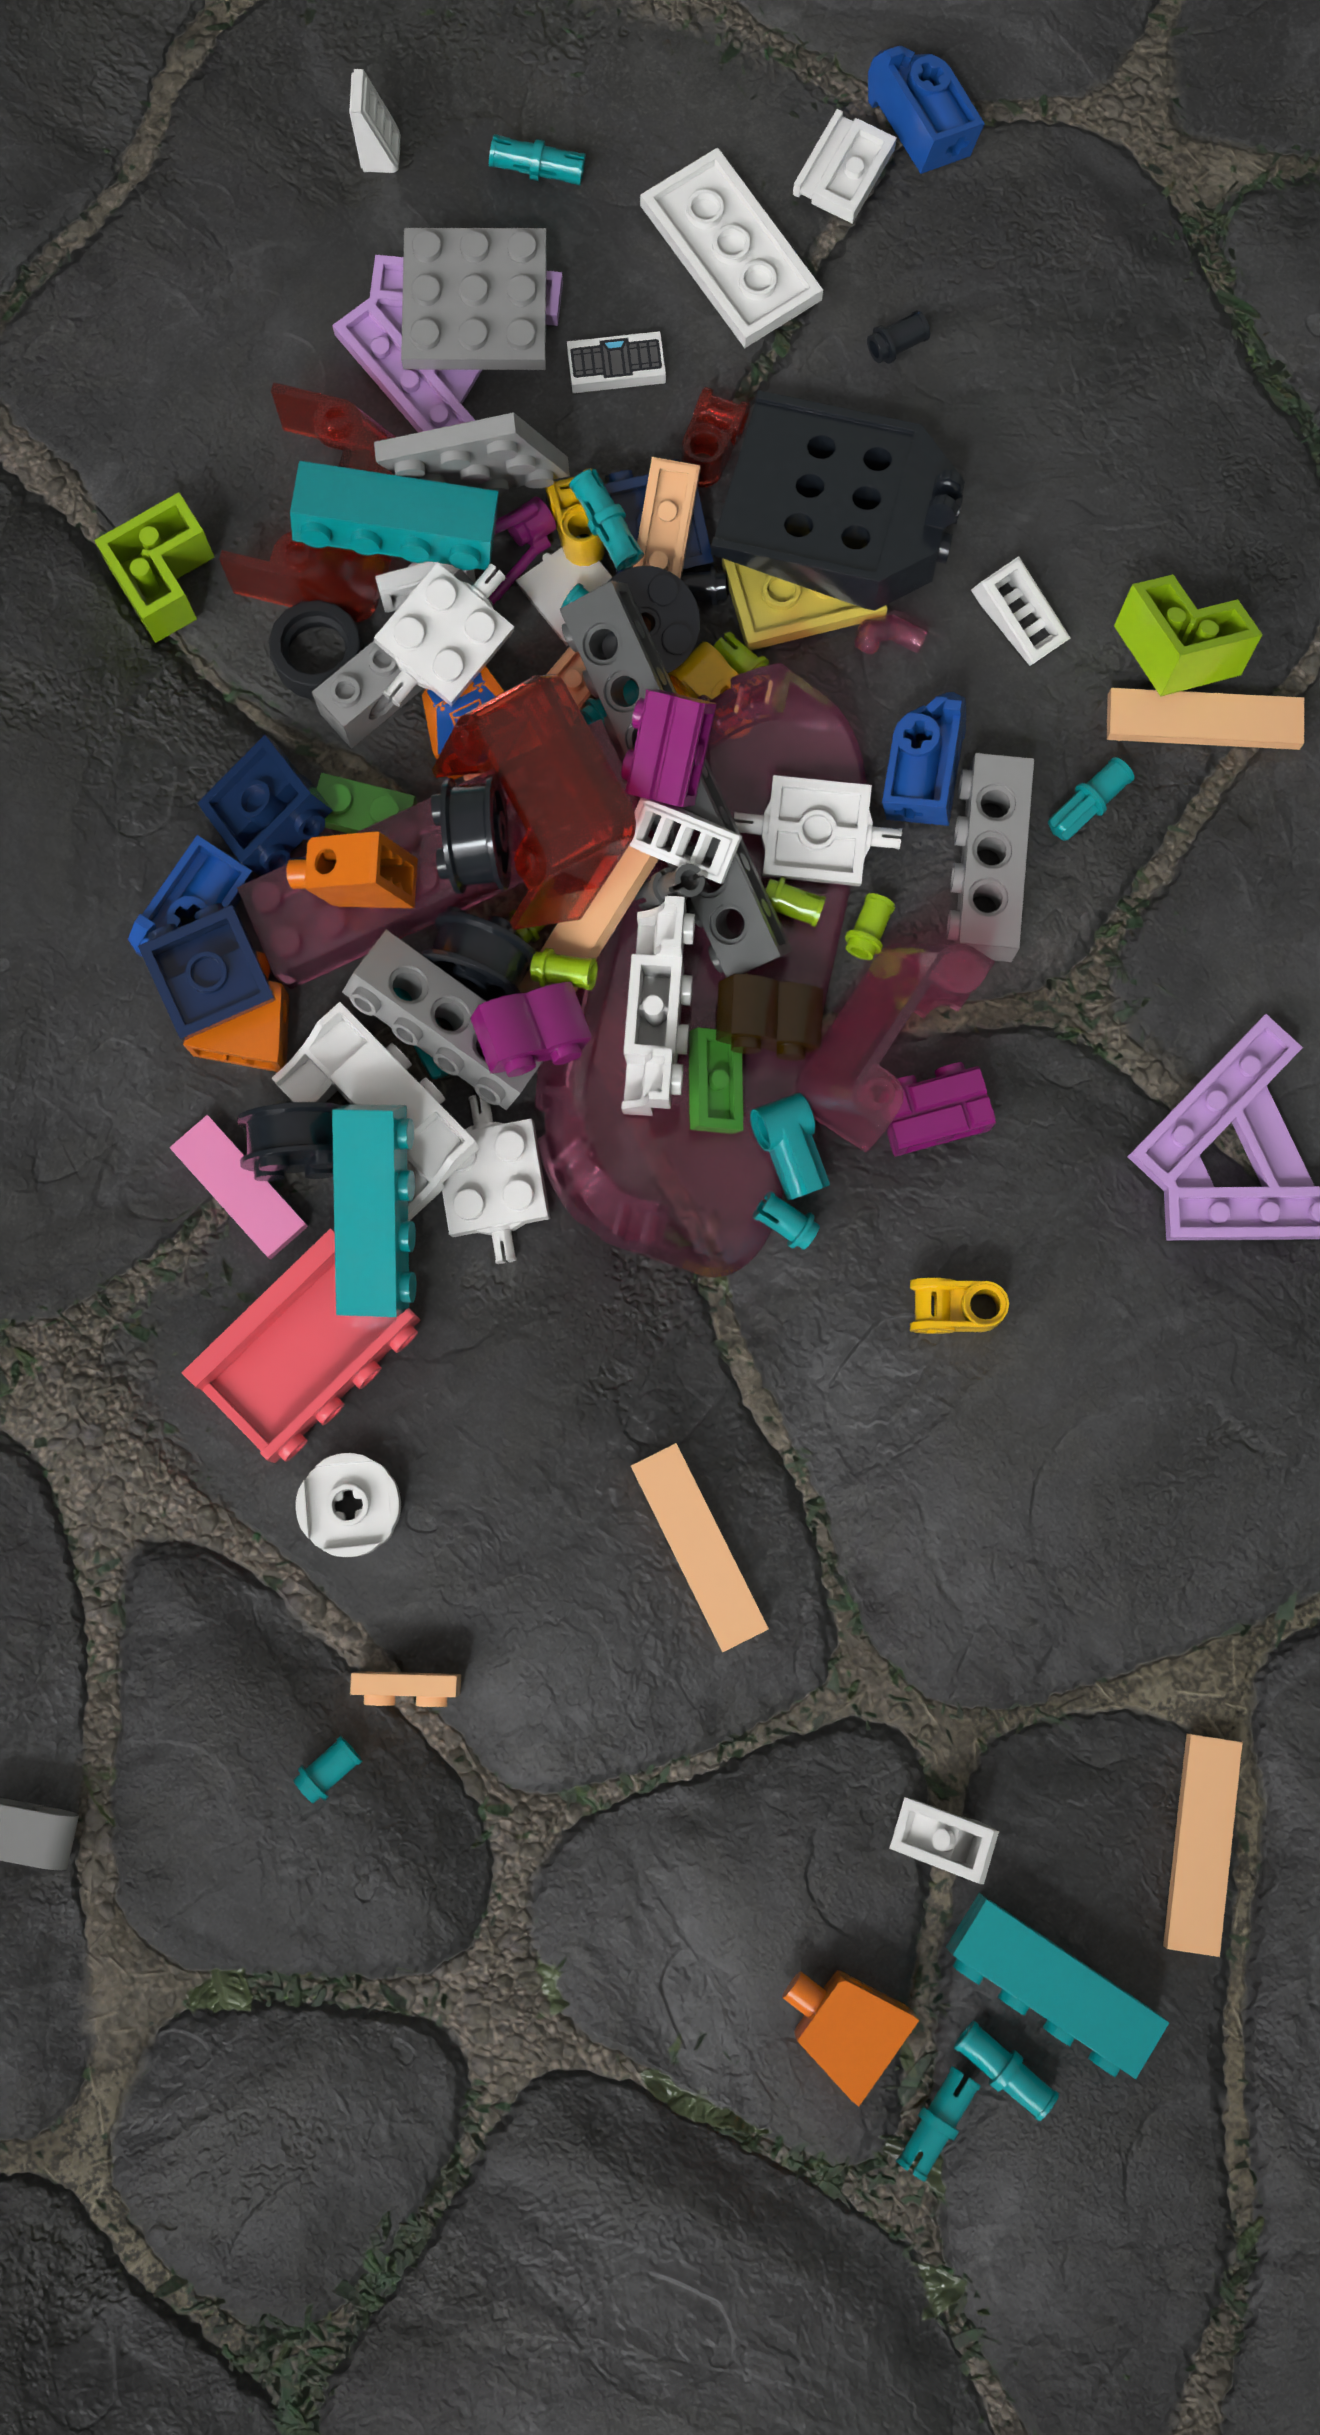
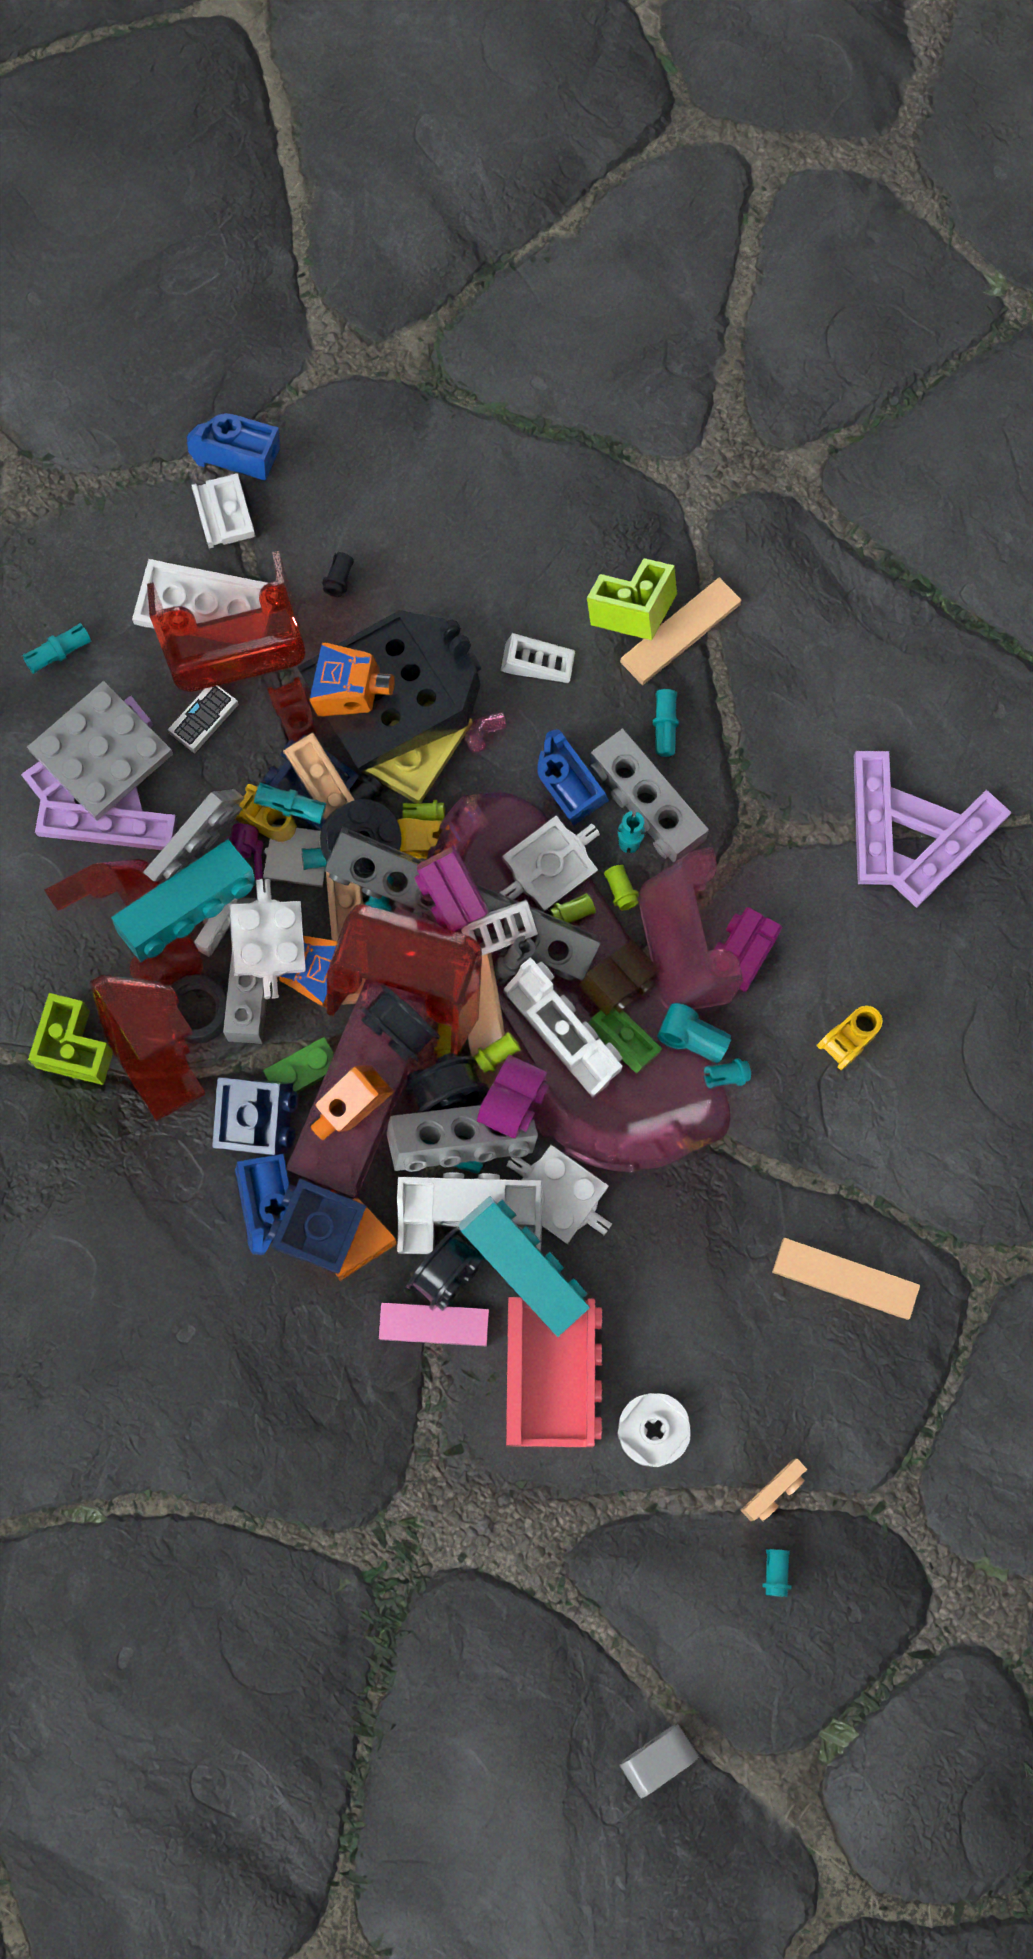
camera: 45 degrees left, 5 degrees down
(225, 600) = (148, 1040): none -> clear red windscreen
(706, 307) = (231, 645): none -> clear red windscreen
(787, 444) = (347, 681): none -> orange torso
(933, 874) = (628, 825): none -> teal pin

